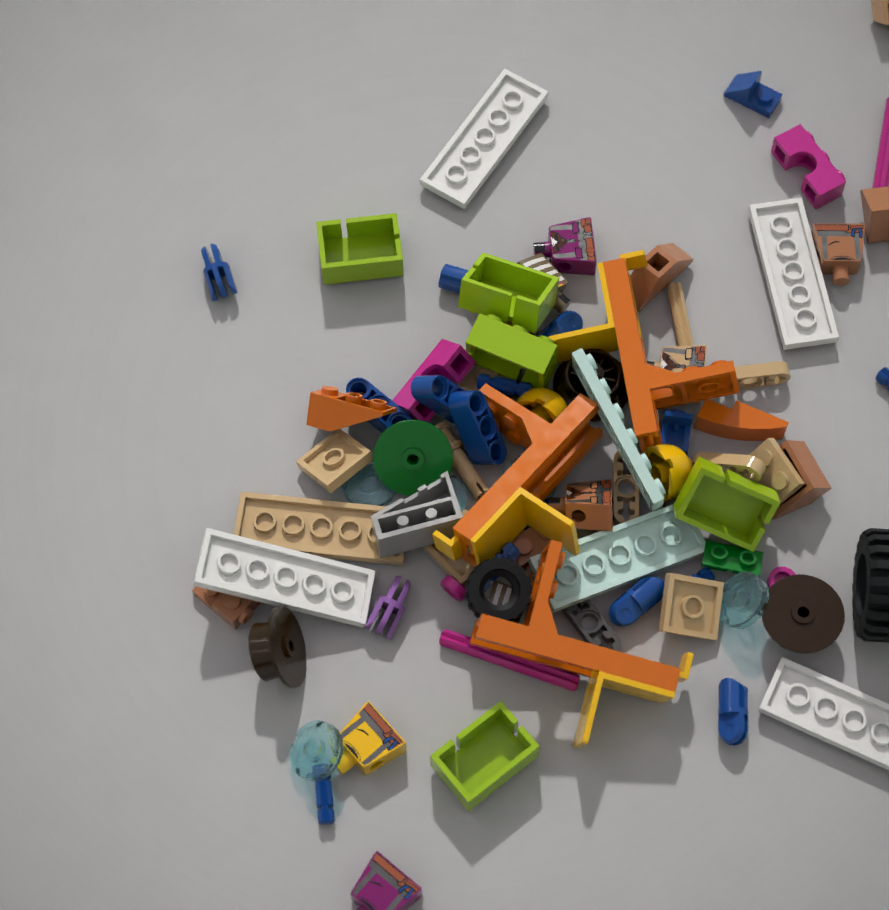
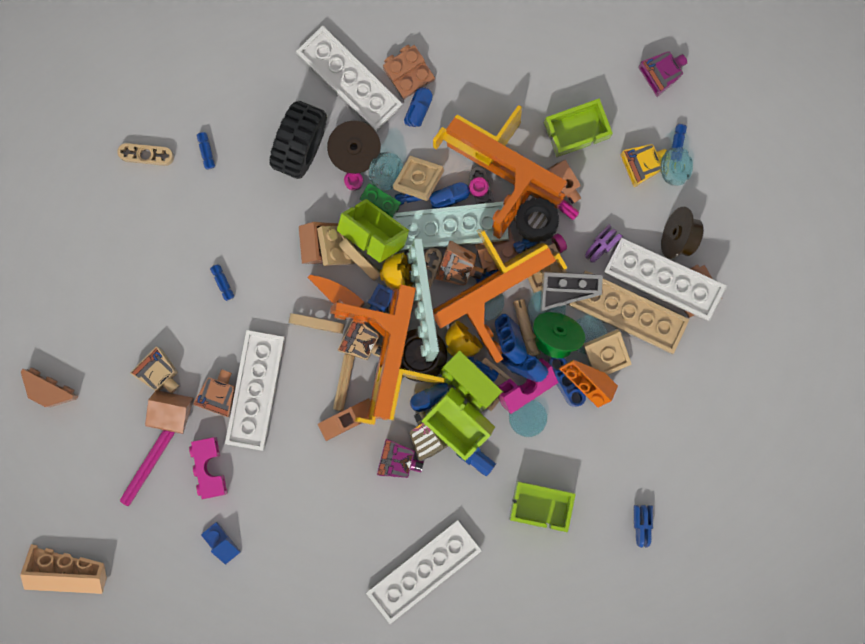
camera: 165 degrees left, 20 degrees up
(410, 350) = (529, 419): none -> clear light blue tile
(480, 673) = (564, 171): none -> nougat torso
(599, 624) = (478, 187): none -> dark pink tile
(771, 763) = (408, 71): none -> nougat plate

